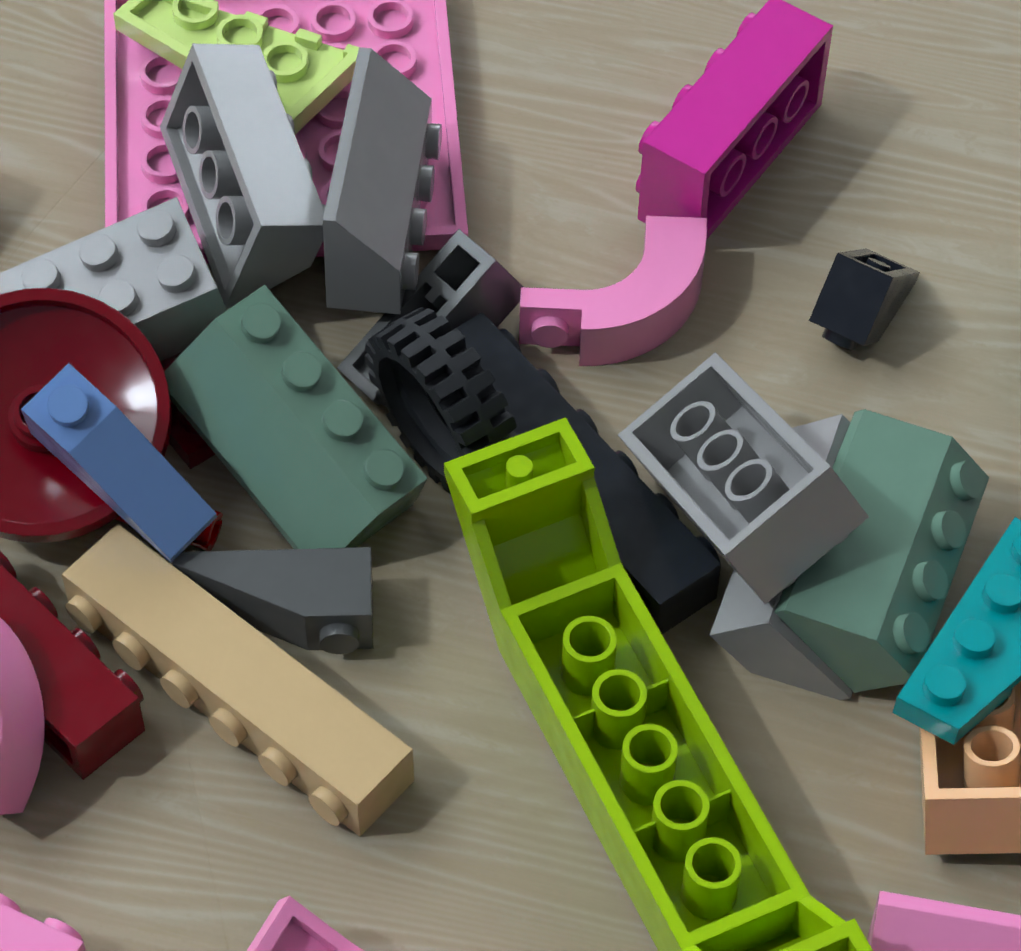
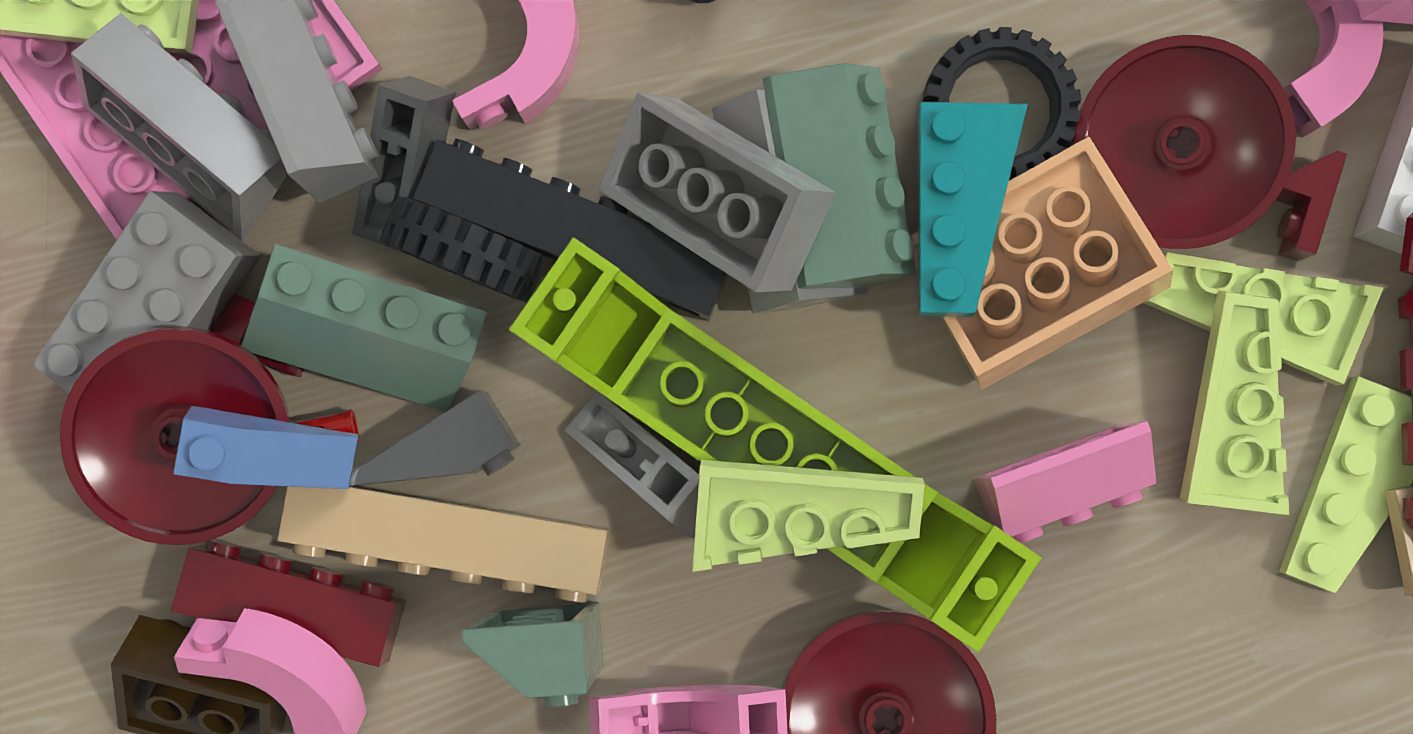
camera: 25 degrees left, 30 degrees up
(279, 783) = (542, 649): none -> sand green slope
(500, 728) = (638, 460): none -> light grey slope
(627, 808) = (783, 510): none -> yellowish green wing

